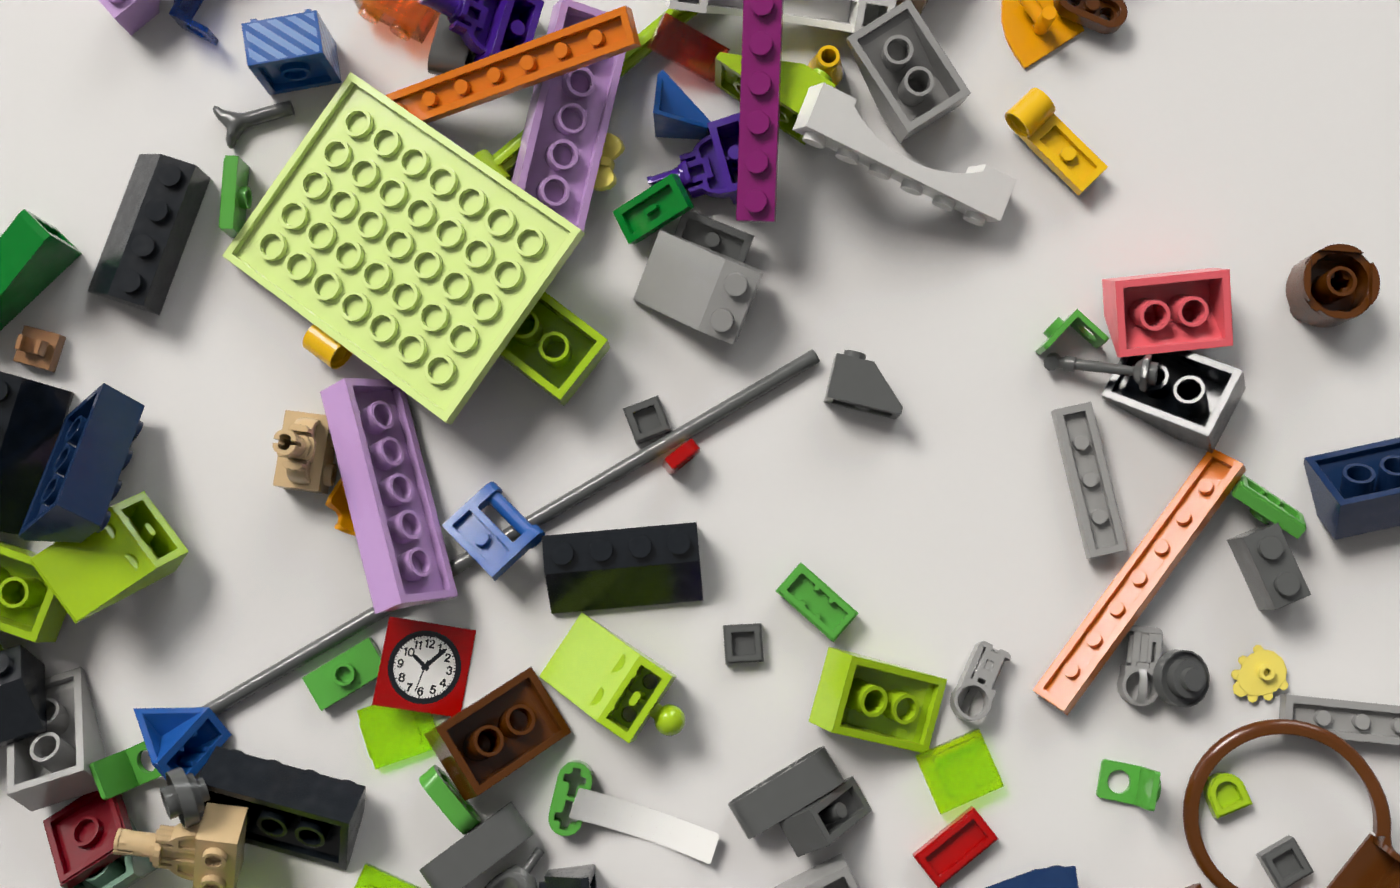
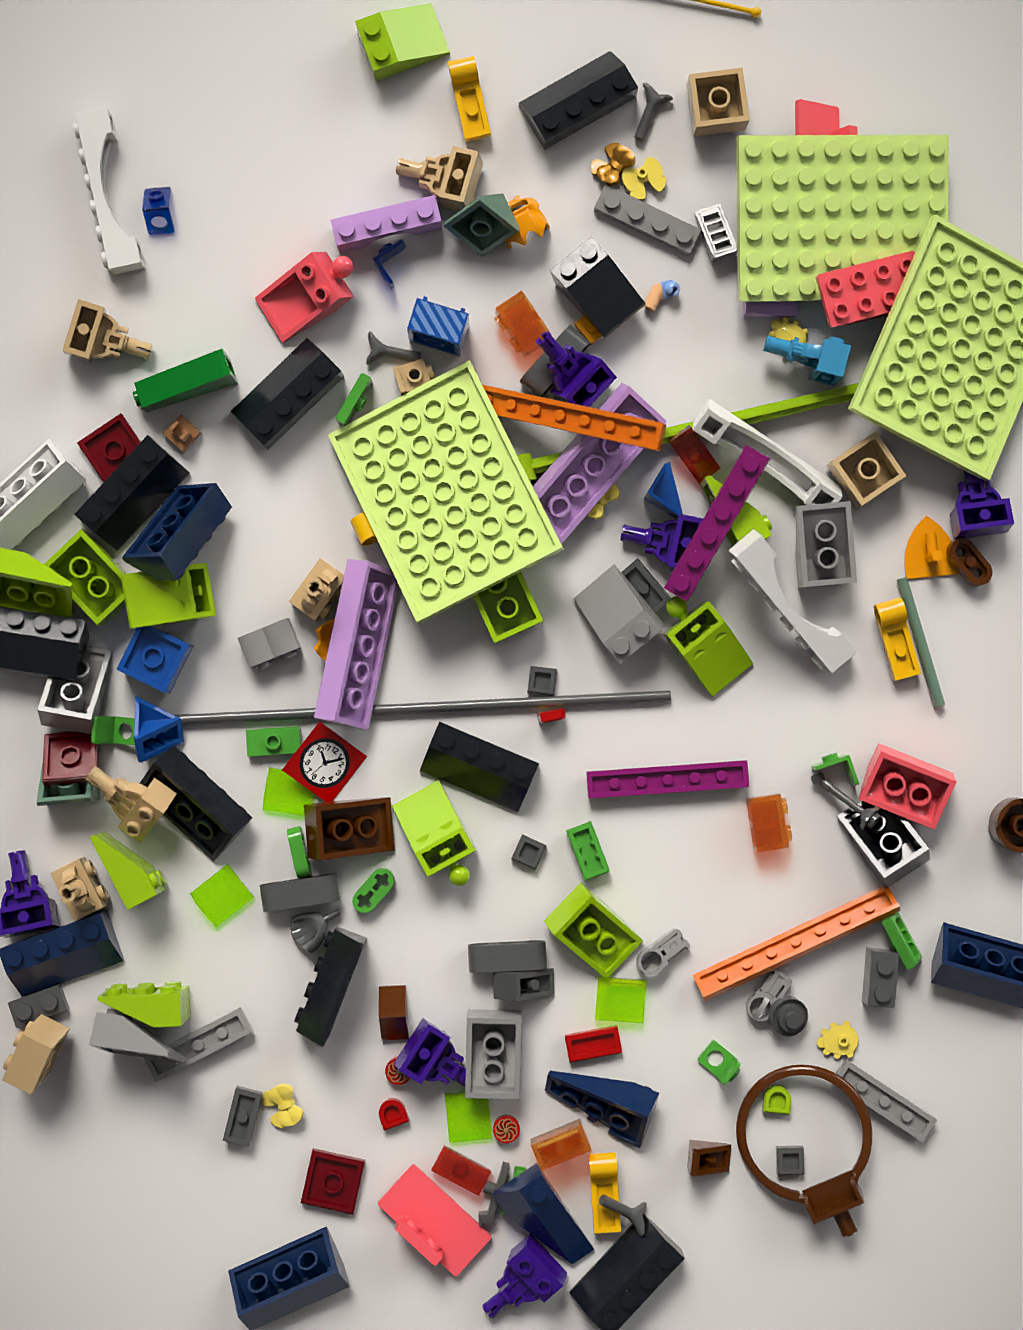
camera: 25 degrees right, 5 degrees up
(104, 111) = (306, 294): none -> coral slope
(136, 646) = (155, 658): none -> blue container
(184, 796) = (145, 768): dark grey plate -> none
(278, 552) = (269, 643): none -> light grey brick
(280, 129) = (403, 372): none -> tan brick
(484, 539) = (402, 704): plate -> none
(645, 824) = (411, 930): white sticker -> none
(653, 209) = (616, 549): green plate -> none
(829, 61) = (768, 510): yellow cone -> none
(833, 275) = (709, 648): none -> lime slope
(860, 386) = (687, 730): dark grey slope -> none
(867, 459) = (667, 779): none -> magenta plate
(1022, 447) = (768, 822): none -> clear orange brick
(1088, 135) = (921, 643): none -> sand green piece
(1088, 480) = (799, 865): light grey plate -> none

